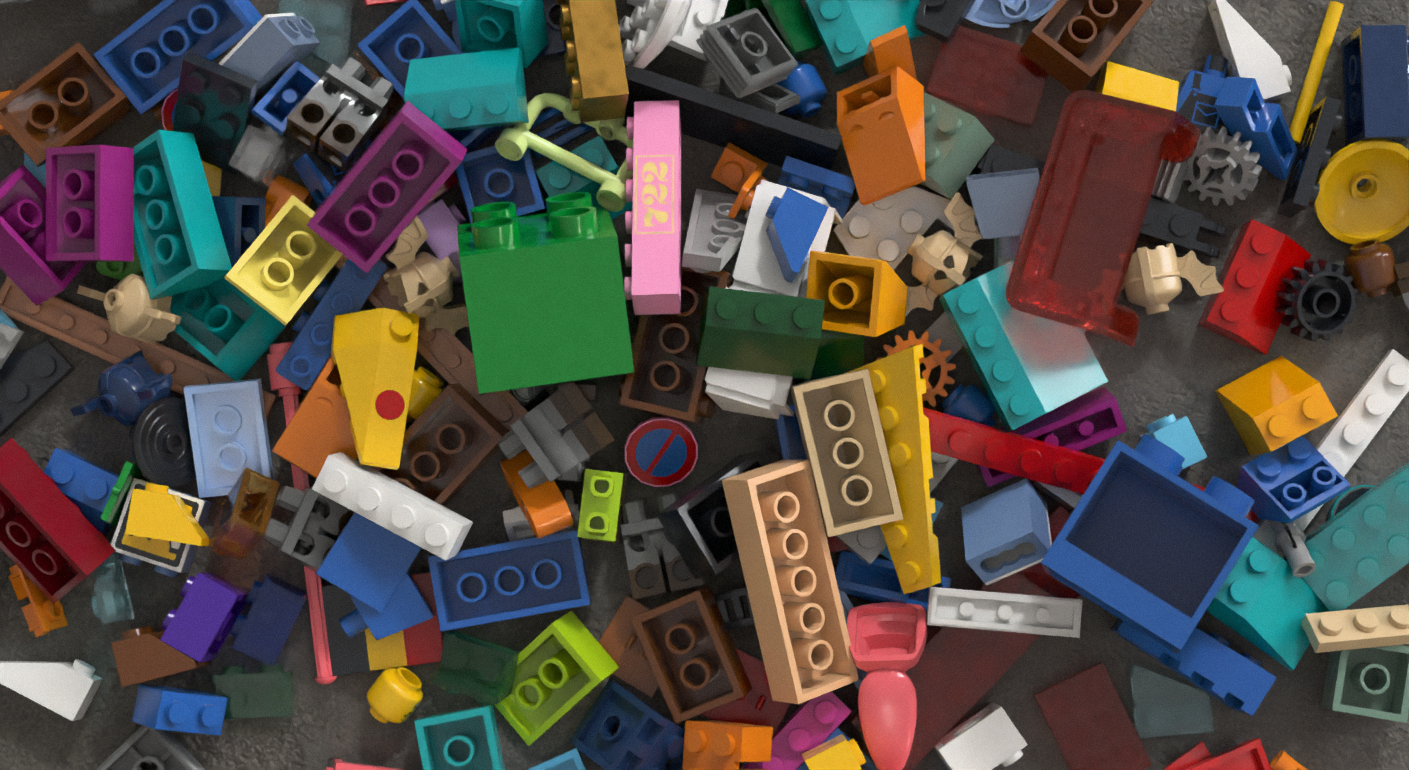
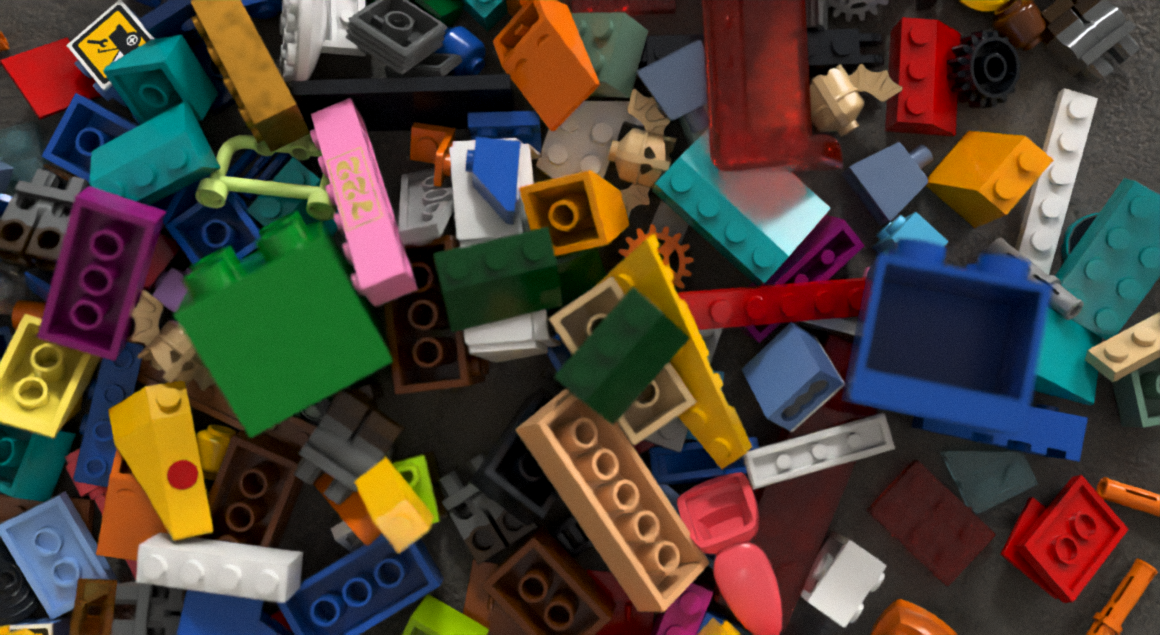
camera: 25 degrees left, 0 degrees up
(583, 505) = (394, 505): none -> yellow slope
(661, 451) = (454, 420): piece -> none
(849, 447) = (621, 356): none -> dark green slope
(969, 404) = (714, 274): blue head -> none
(1180, 374) = (889, 179): none -> sand blue torso
(1290, 481) = (1034, 232): blue slope -> none

